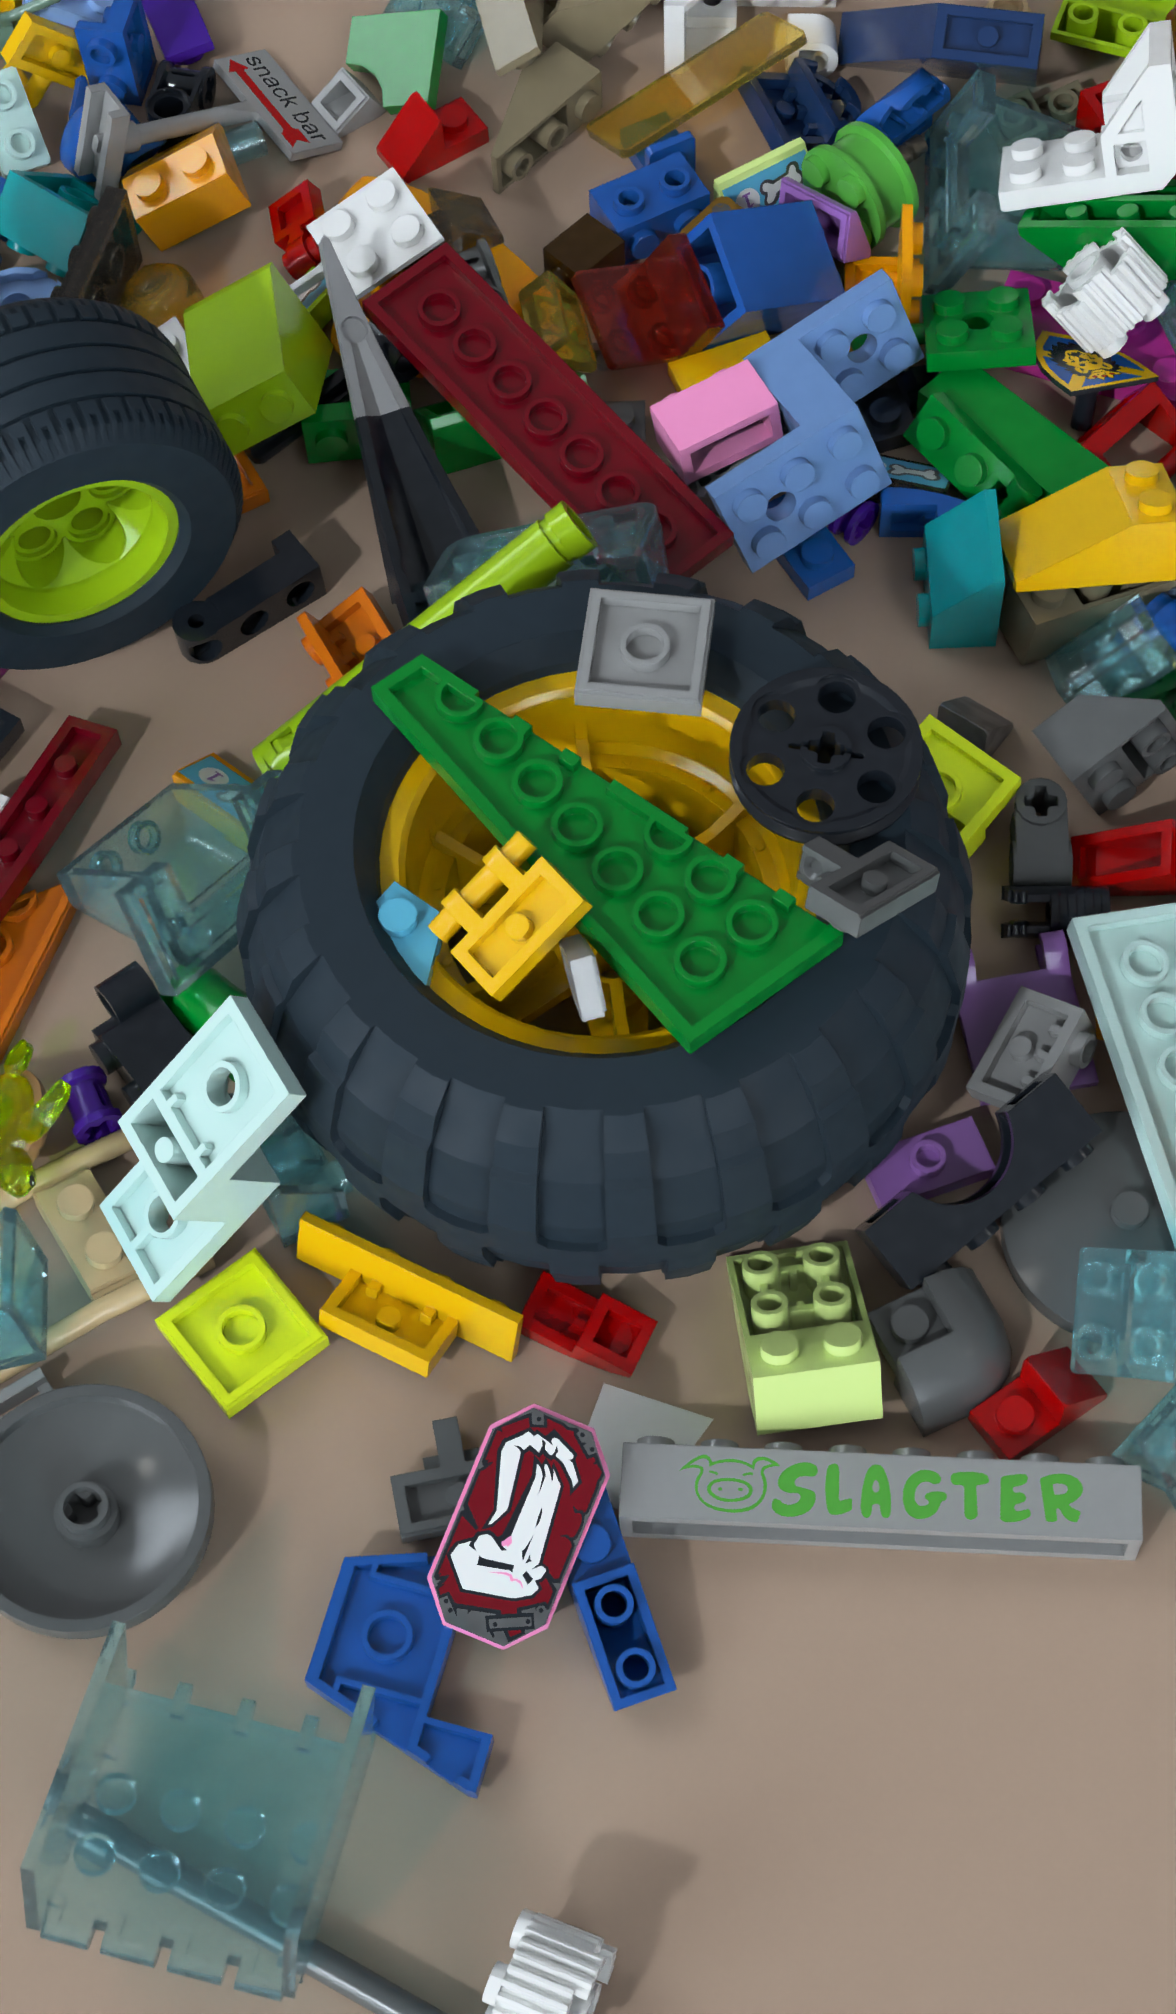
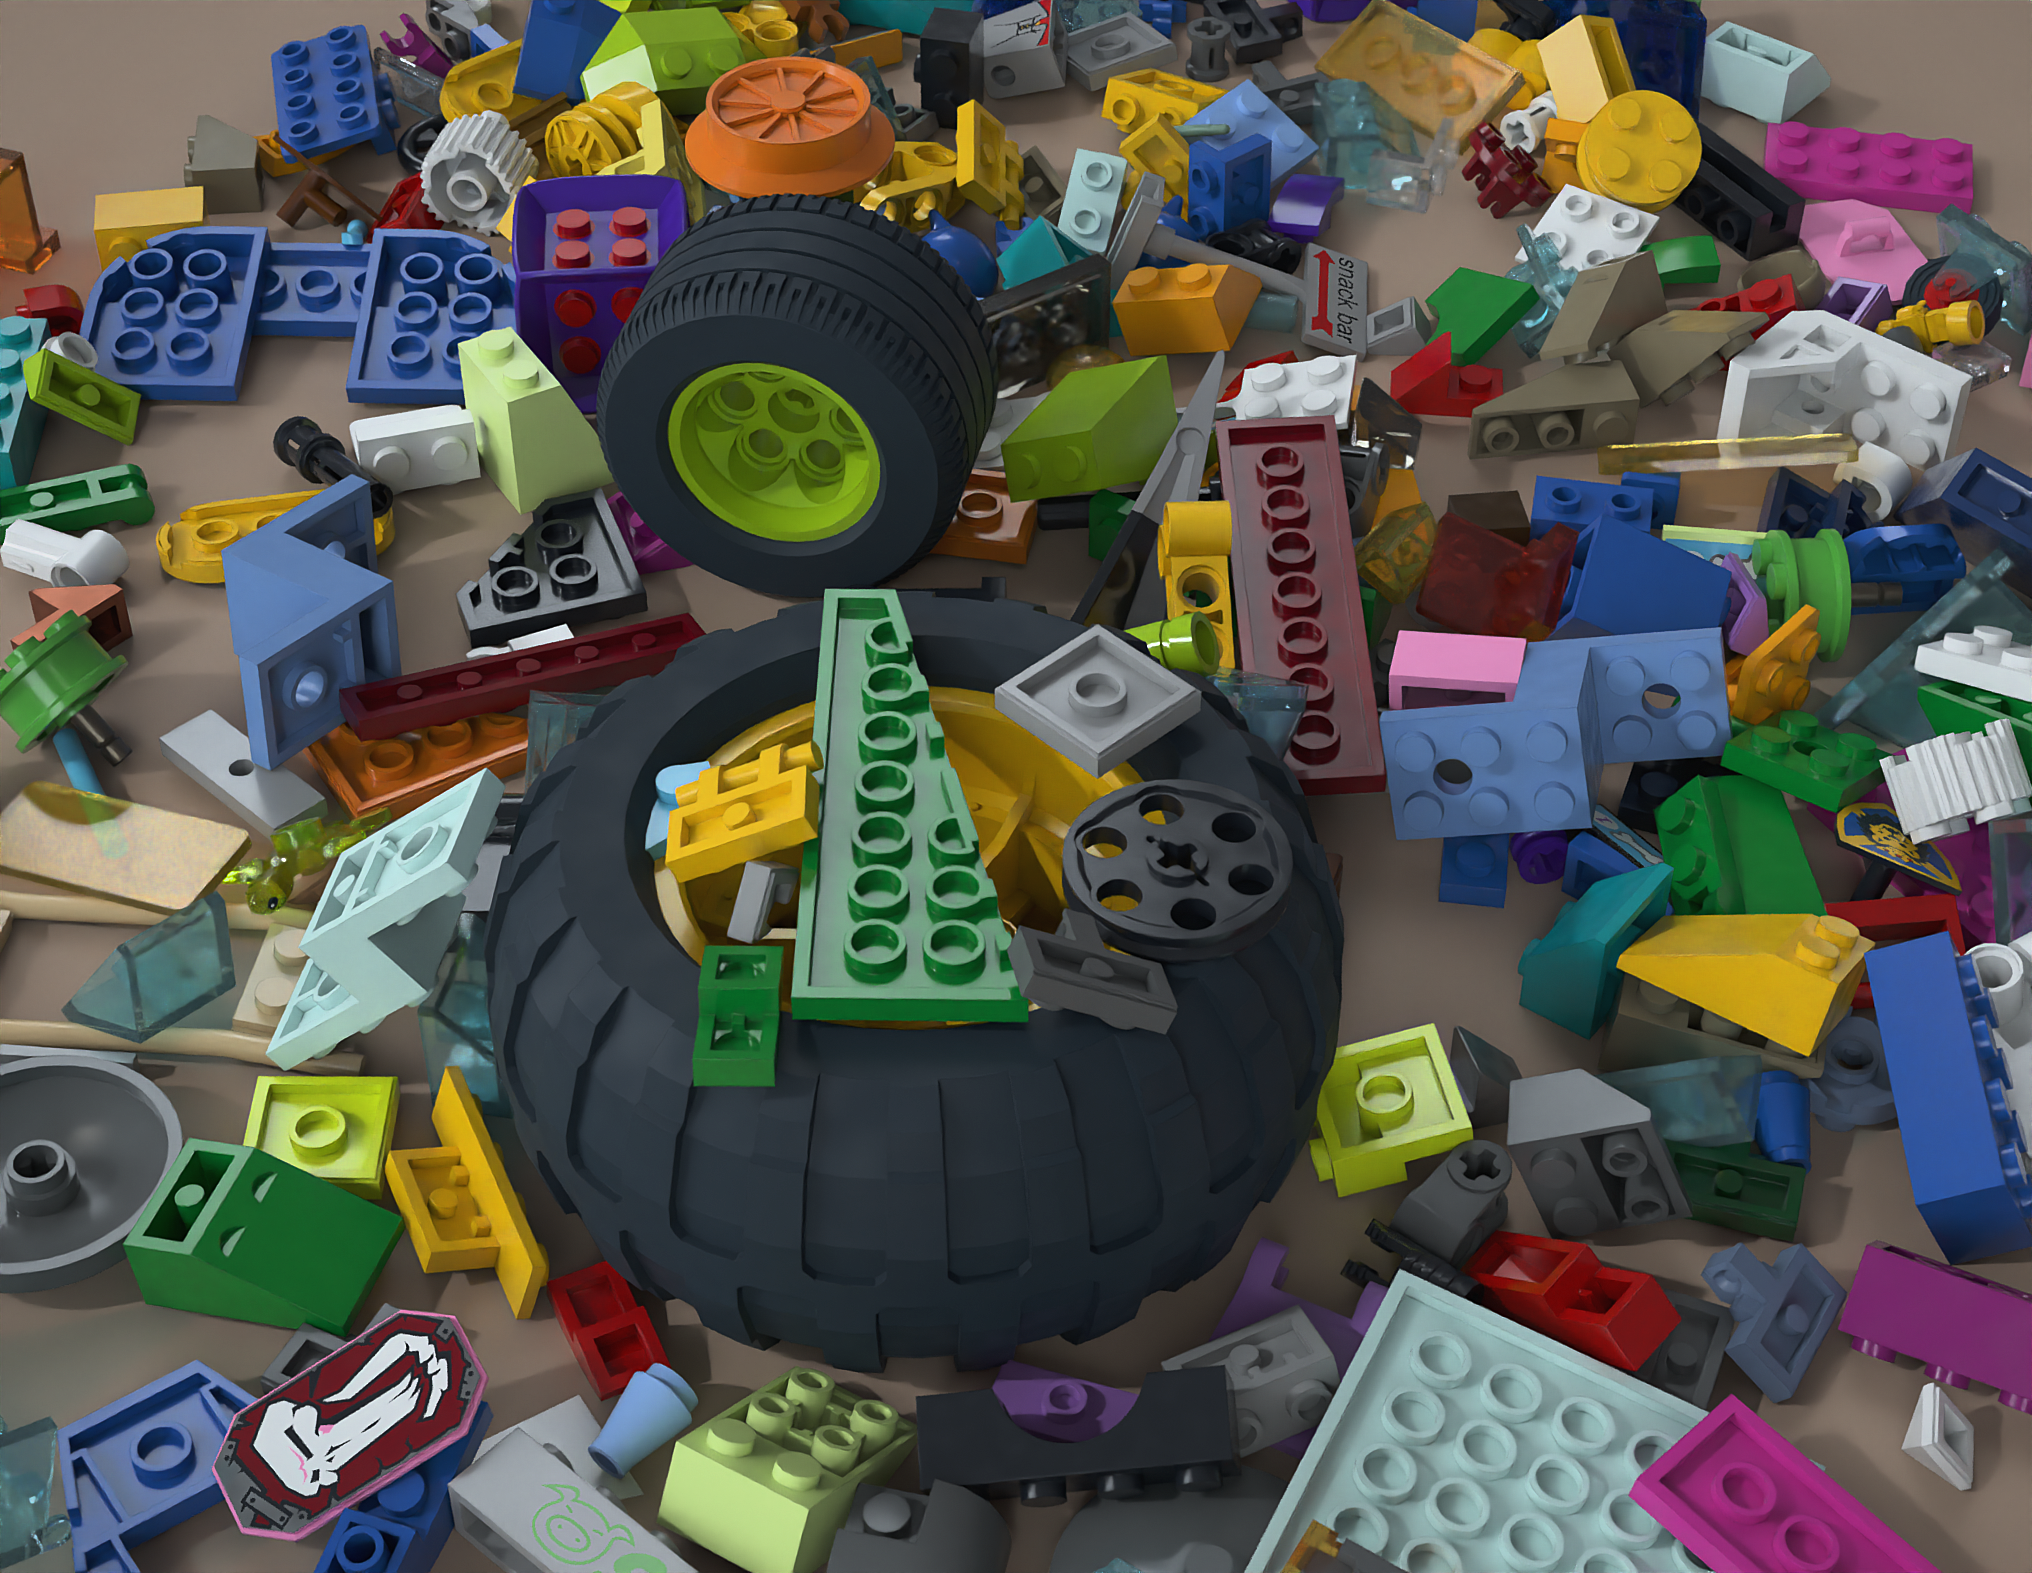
camera: 35 degrees right, 20 degrees down
(304, 1441) = (258, 1241): none -> green slope
(453, 428) = (1194, 557): none -> yellow piece
(653, 1078) = (739, 1016): none -> green slope
(677, 1371) = (645, 1418): none -> light blue cone

